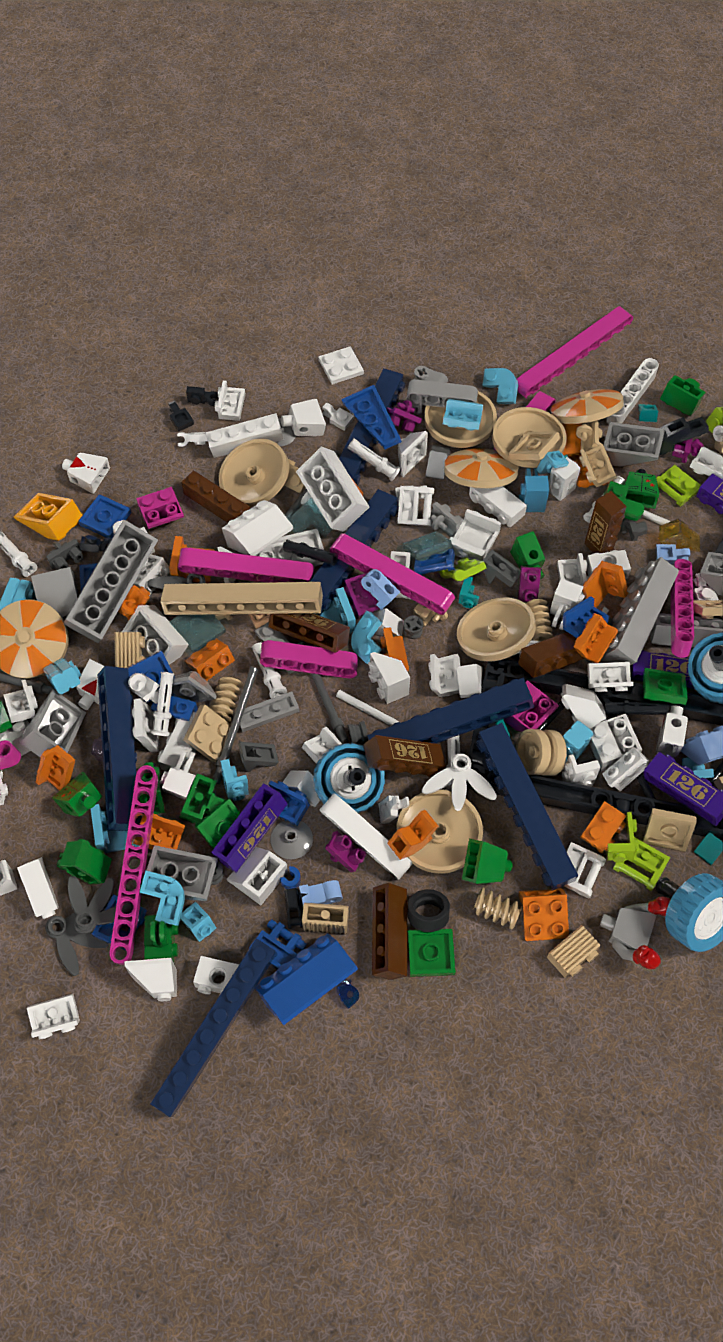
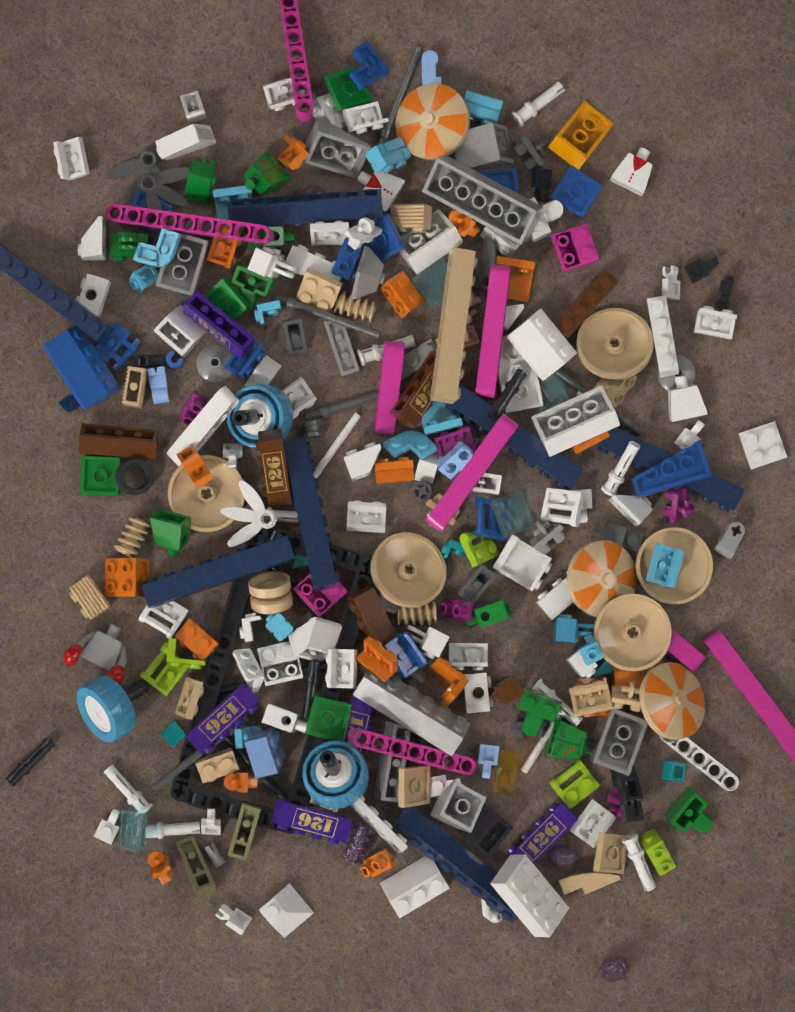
camera: 85 degrees right, 25 degrees up
(162, 714) = (335, 249): white pin -> none
(437, 393) = (696, 547): light grey beam -> none
(470, 680) = (355, 538): white slope -> none
(504, 381) = (723, 619): medium azure plate -> none
(534, 446) = (607, 631): tan plate -> none

